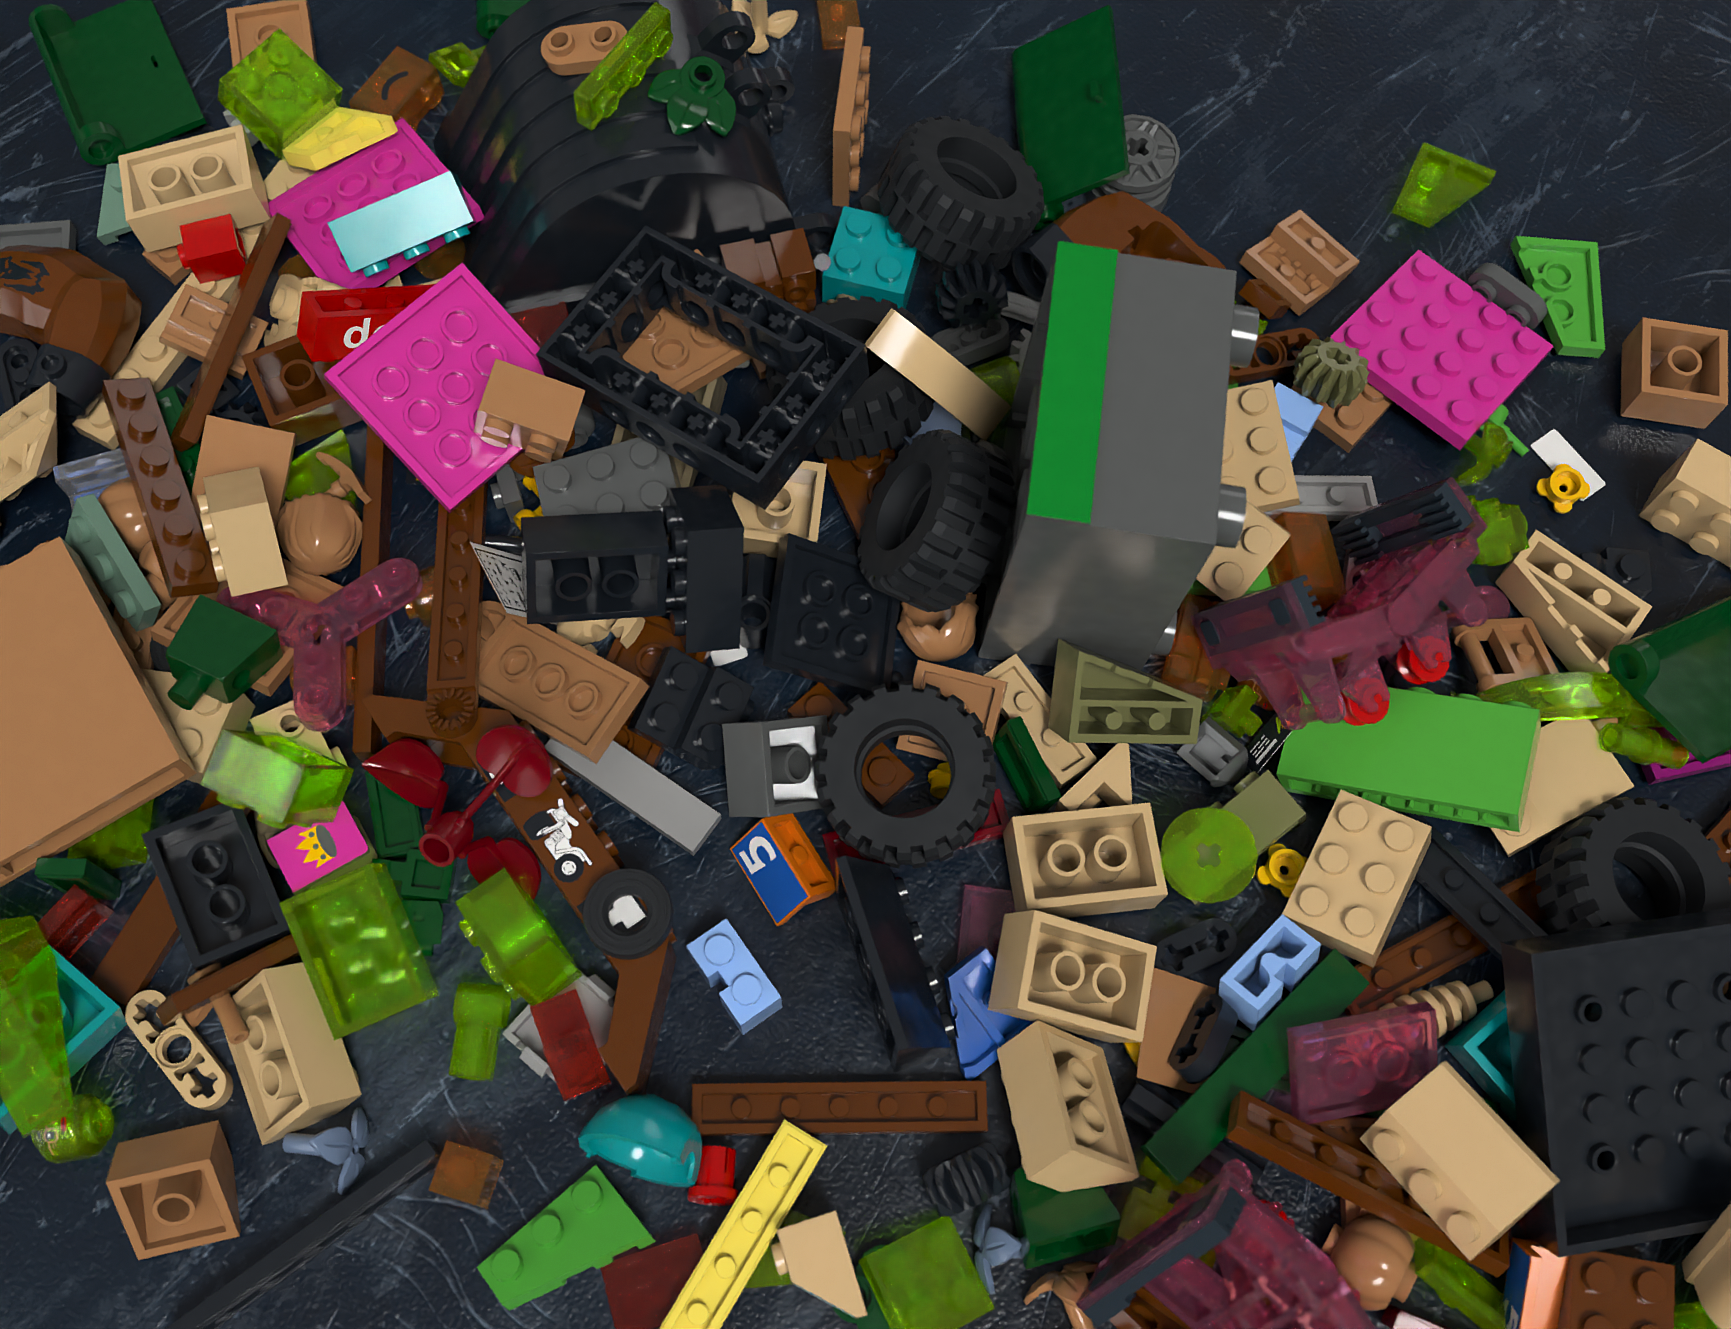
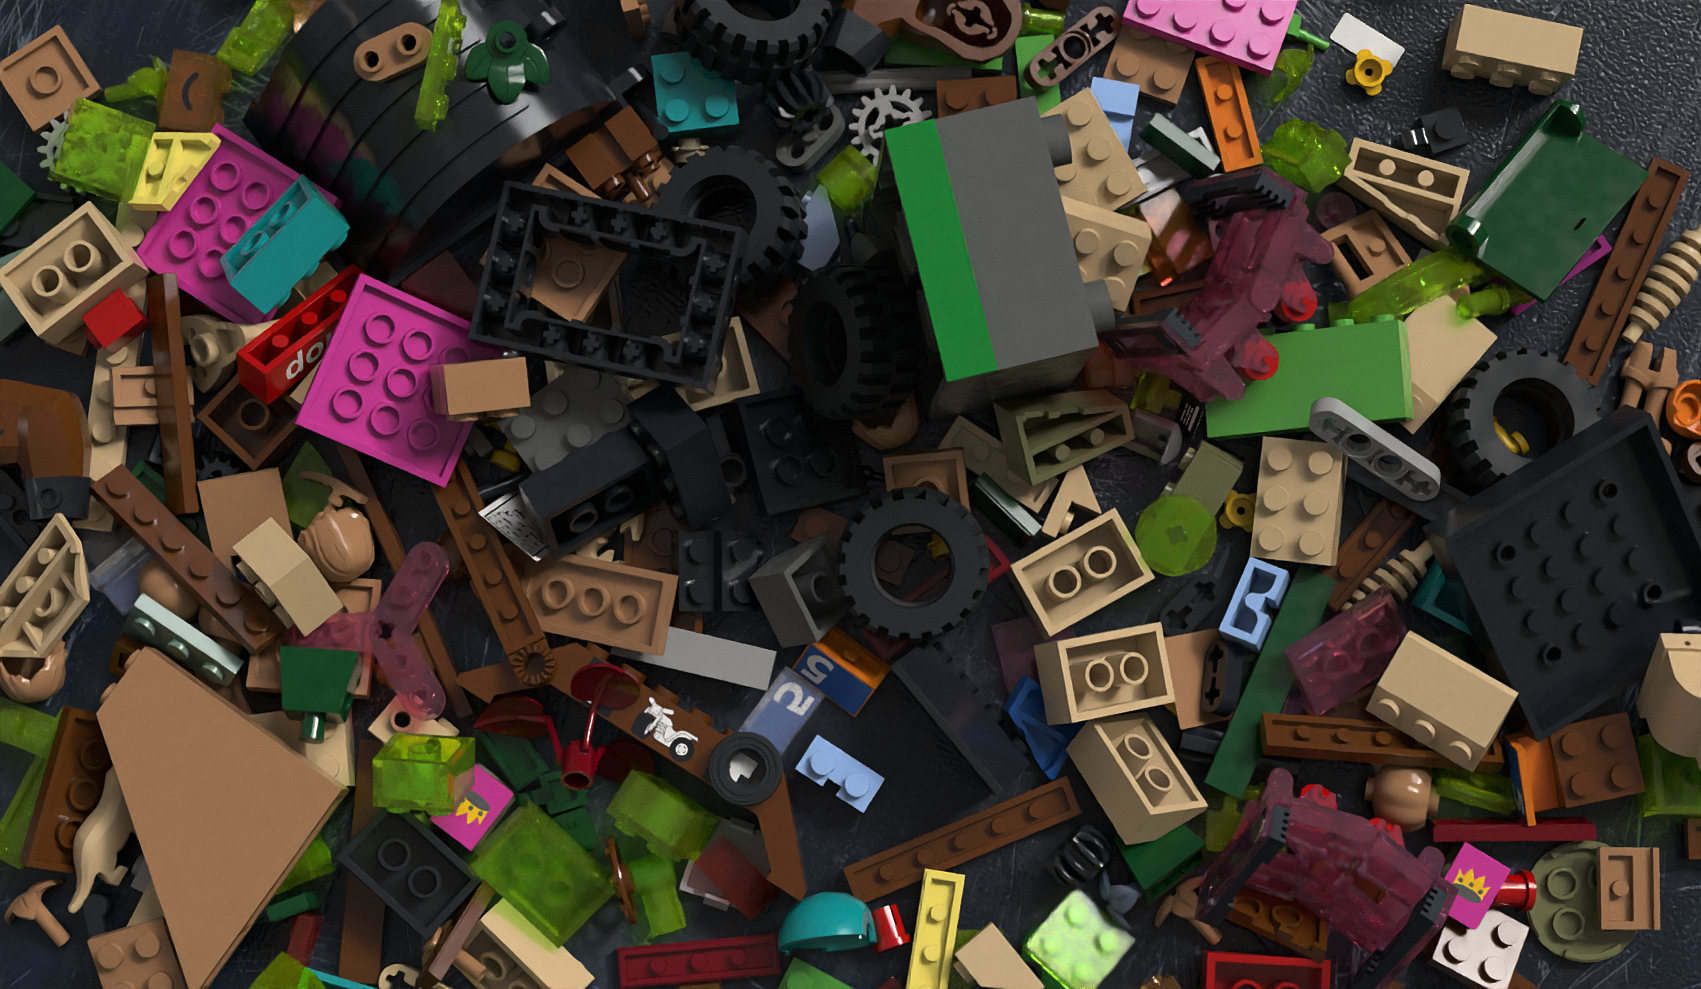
camera: 15 degrees left, 15 degrees up
(358, 65) = (142, 83): none -> clear neon green plant
(441, 993) = (622, 878): none -> reddish brown wheel
(487, 1126) = (698, 960): none -> dark red tile
(704, 884) = (783, 709): none -> clear panel
(937, 374) = (804, 210): tan slope -> none
(1330, 372) = (1135, 53): olive gear -> none
(1343, 474) = (1179, 147): none -> dark green tile
(1403, 455) = (1228, 114): none -> orange plate
(1472, 841) = (1369, 453): none -> light grey beam

